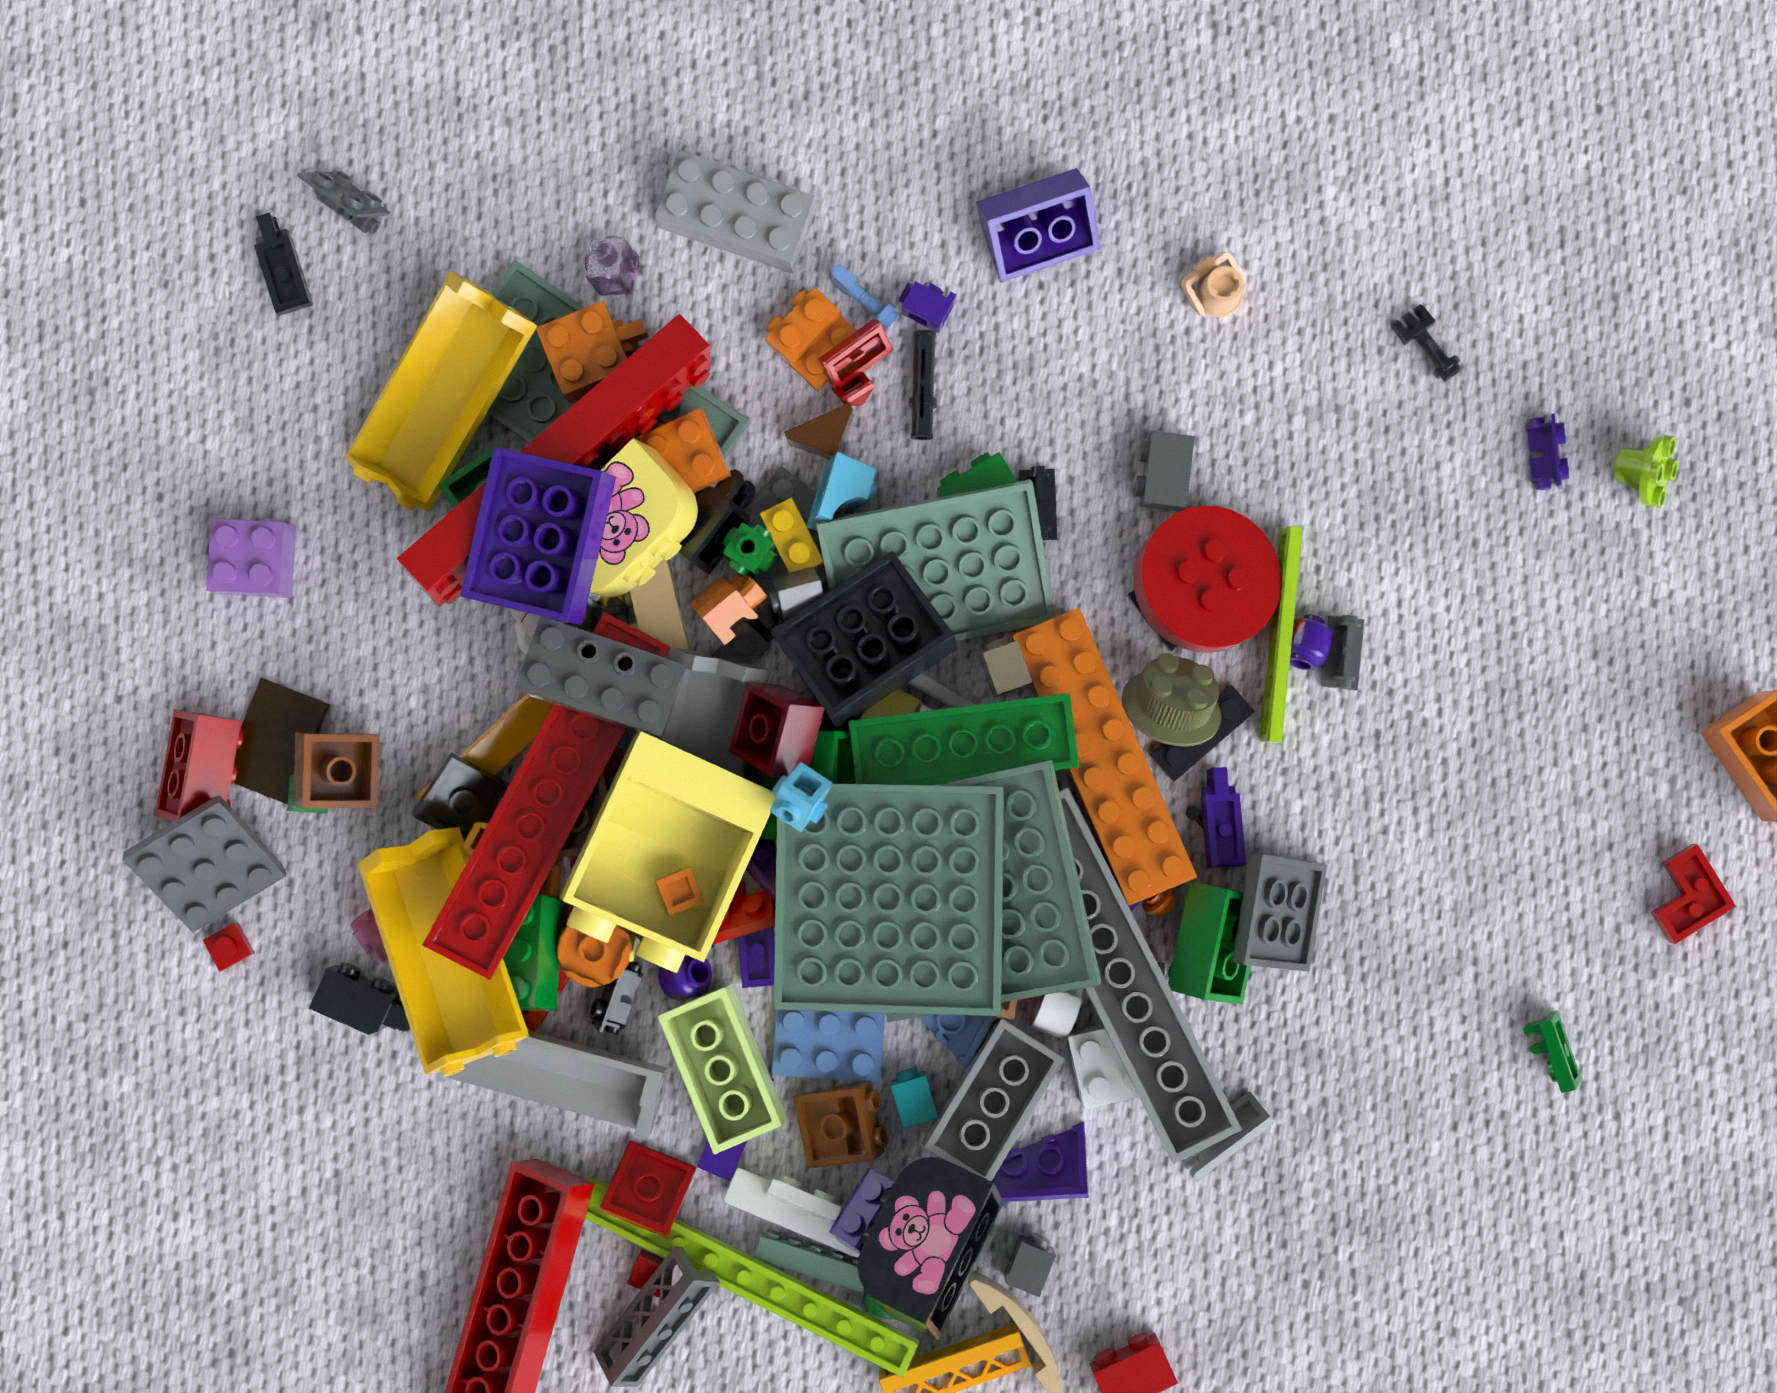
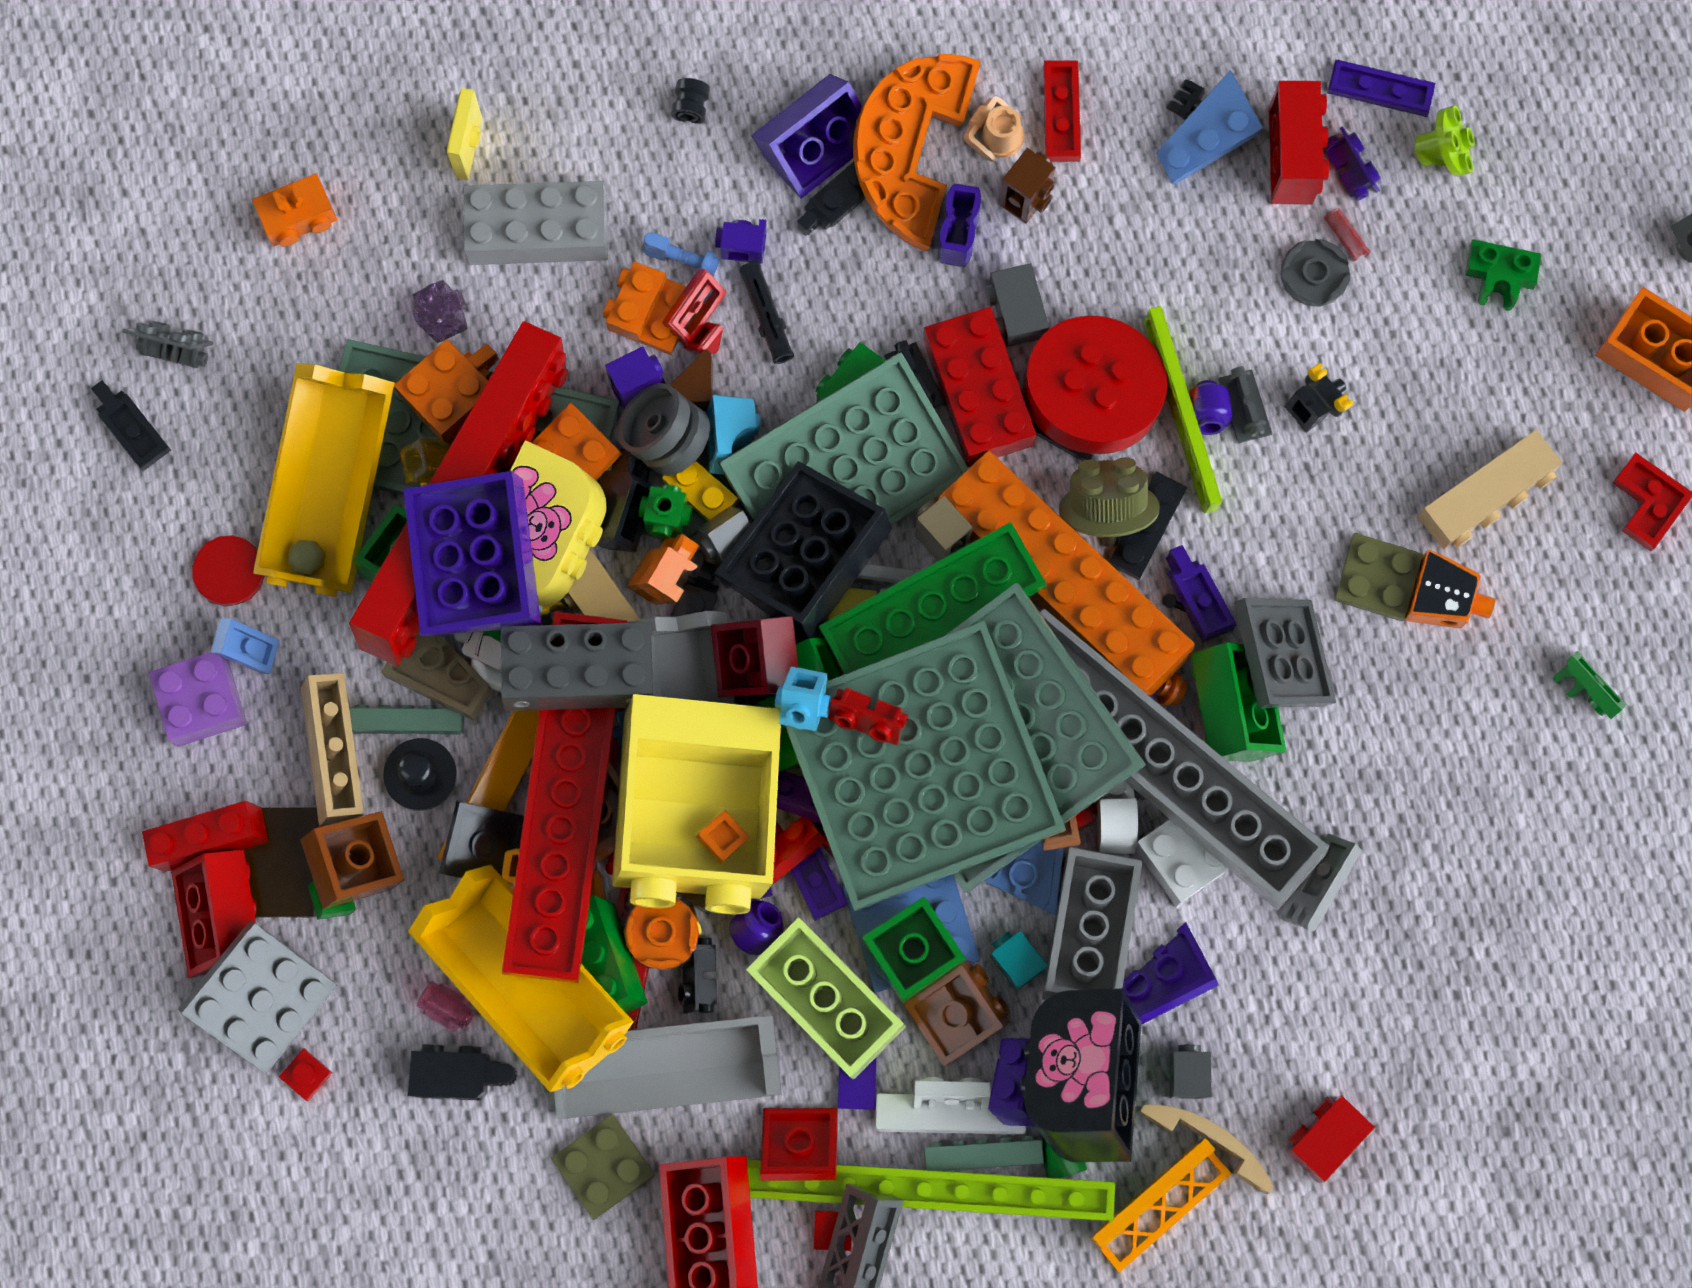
camera: 20 degrees left, 10 degrees down
(211, 693) = (218, 830): none -> red brick
(310, 526) = (244, 645): none -> medium blue plate
(321, 442) = (225, 571): none -> red tile
(356, 656) = (331, 748): none -> tan brick
(400, 460) = (306, 557): none -> olive tile
(432, 708) = (420, 774): none -> black plate
(437, 651) = (405, 720): none -> sand green piece
(465, 1135) = (603, 1166): none -> olive plate
(487, 631) = (441, 676): none -> dark tan wing
(511, 111) = (295, 211): none -> orange brick
(538, 411) = (422, 459): none -> clear yellow piece
(699, 96) = (464, 134): none -> light yellow plate
(770, 407) = (633, 374): none -> dark purple brick
(777, 469) = (663, 429): none -> dark grey wheel
(818, 1059) = (913, 949): none -> green brick
(844, 826) = (851, 712): none -> red hinge
(931, 143) = (690, 100): none -> black wheel
(1038, 295) = (832, 202): none -> black hinge
(1096, 537) = (979, 385): none -> red brick
(1113, 254) = (893, 134): none -> orange plate
(1141, 370) = (959, 225): none -> dark purple brick
(1223, 357) = (1028, 185): none -> reddish brown brick
(1287, 291) = (1062, 110): none -> red plate
(1400, 867) = (1378, 577): none -> olive plate
(1416, 675) = (1318, 399): none -> black piece
(1424, 369) = (1211, 131): none -> medium blue wing
(1457, 909) = (1446, 593): none -> torso
(1460, 556) = (1319, 282): none -> dark grey tile
(1503, 413) = (1297, 142): none -> red brick
(1517, 517) = (1353, 234): none -> red piece
(1543, 826) = (1489, 490): none -> tan brick
(1608, 385) = (1381, 88): none -> dark purple tile
(1647, 615) = (1502, 270): none -> green plate

